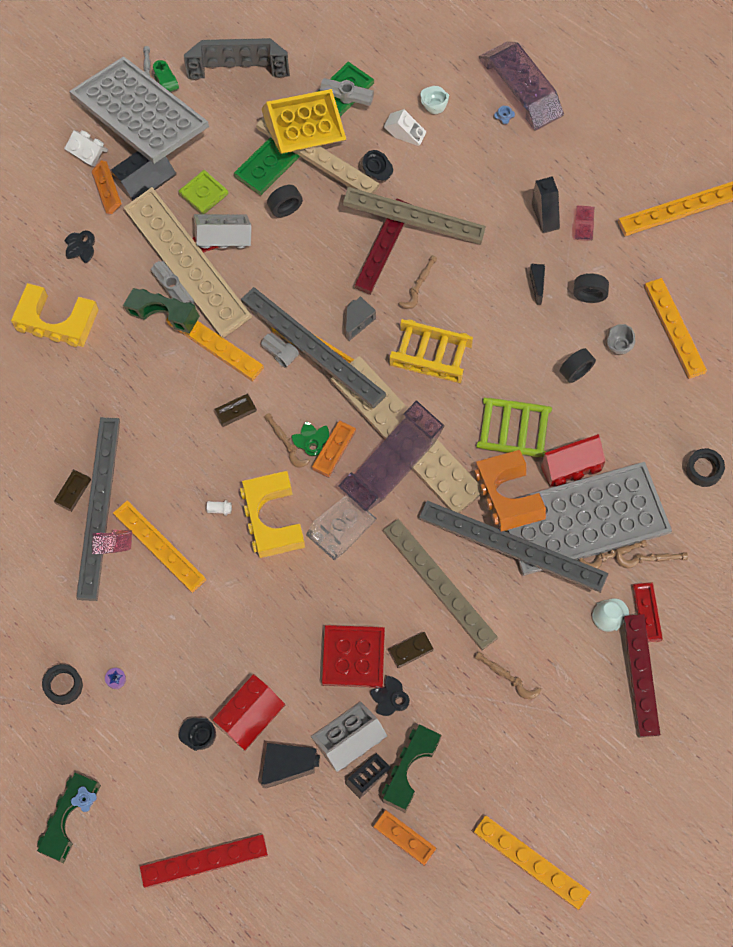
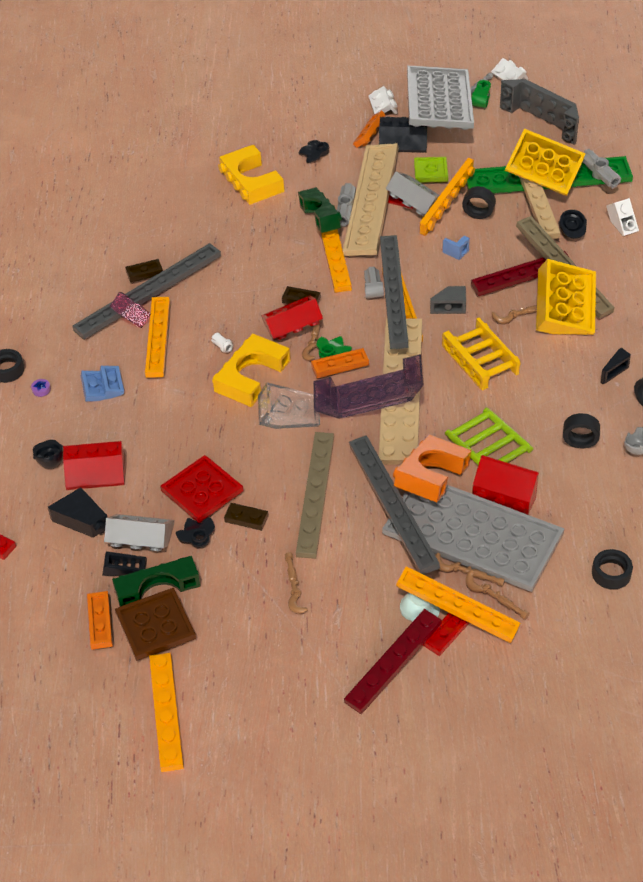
camera: 45 degrees right, 20 degrees down
(162, 35) = (508, 71): none -> white bracket
(162, 630) = (102, 384): none -> medium blue slope
(251, 206) = (444, 200): none -> light orange plate
(253, 436) = (292, 317): none -> red slope
(306, 261) = (456, 249): none -> medium blue panel
(448, 248) = (565, 299): none -> yellow slope
(448, 802) = (155, 624): none -> reddish brown plate
(642, 592) = (458, 604): none -> light orange plate

